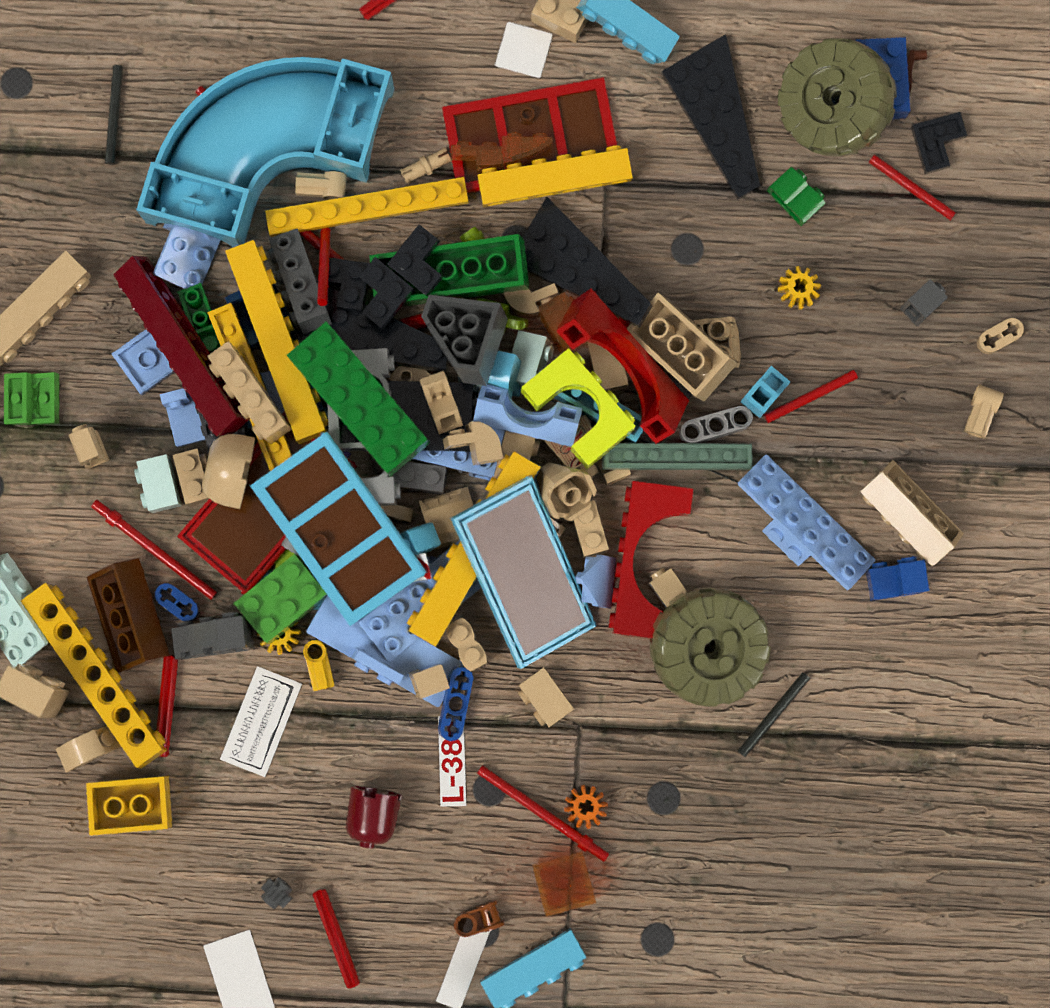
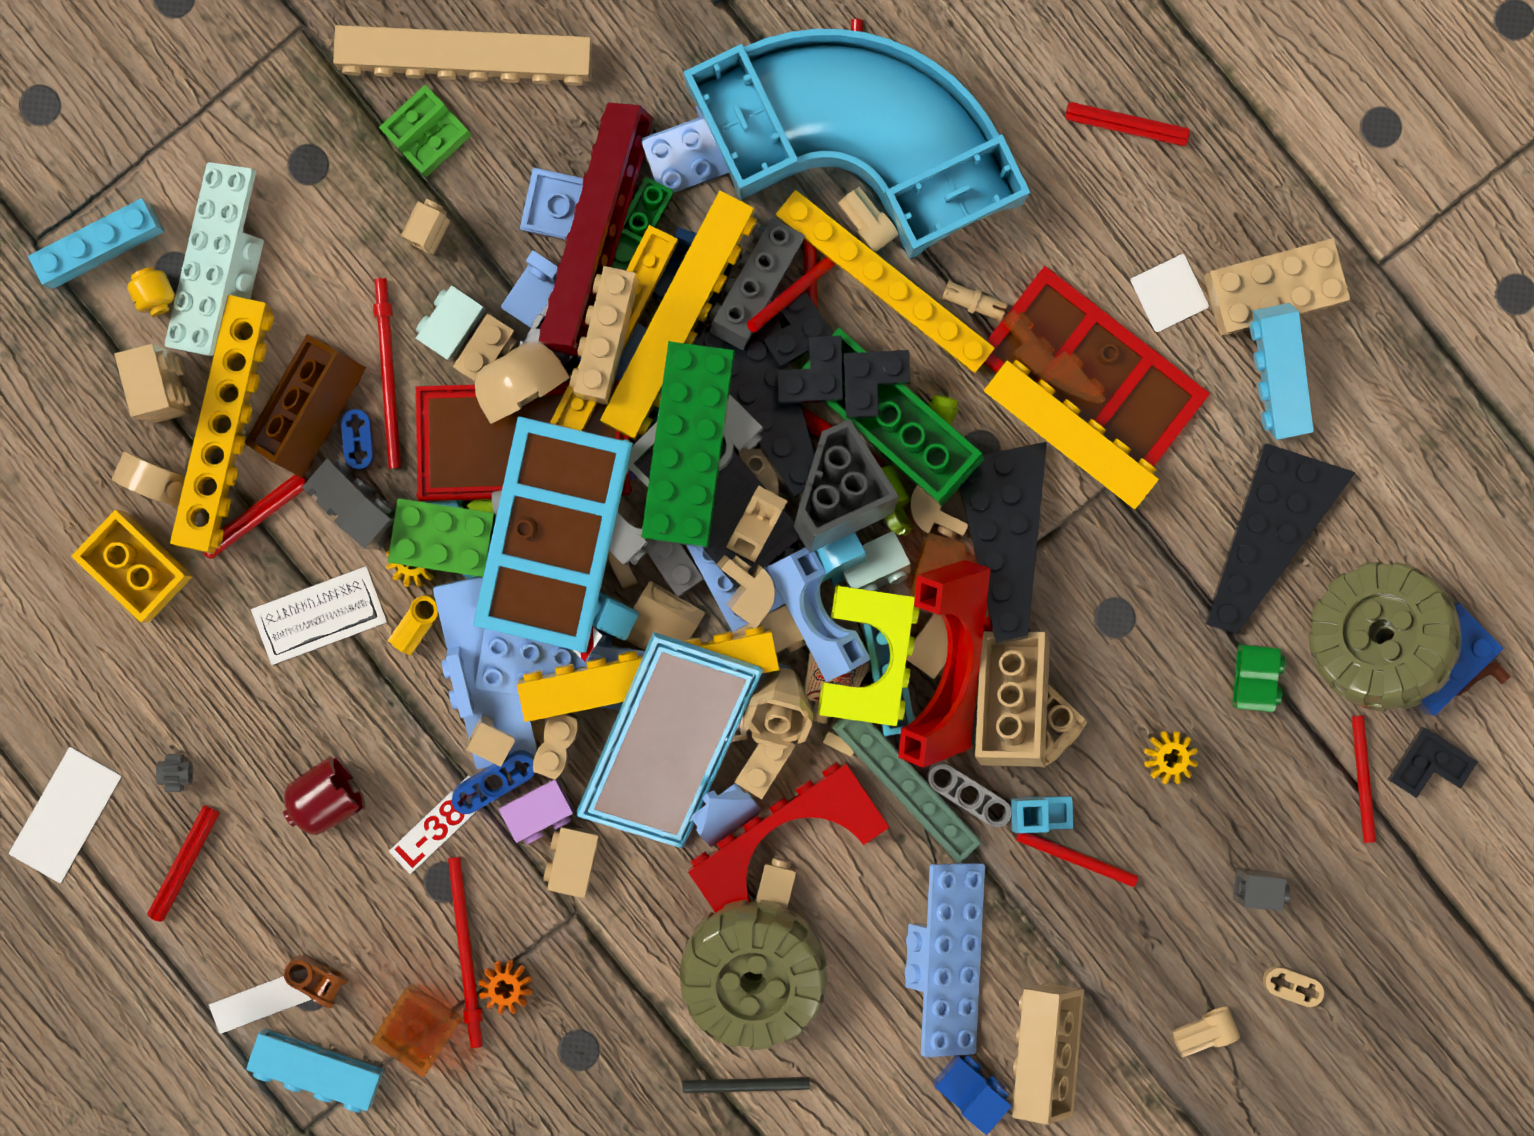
camera: 50 degrees right, 5 degrees up
(496, 692) = (536, 811): none -> lavender brick

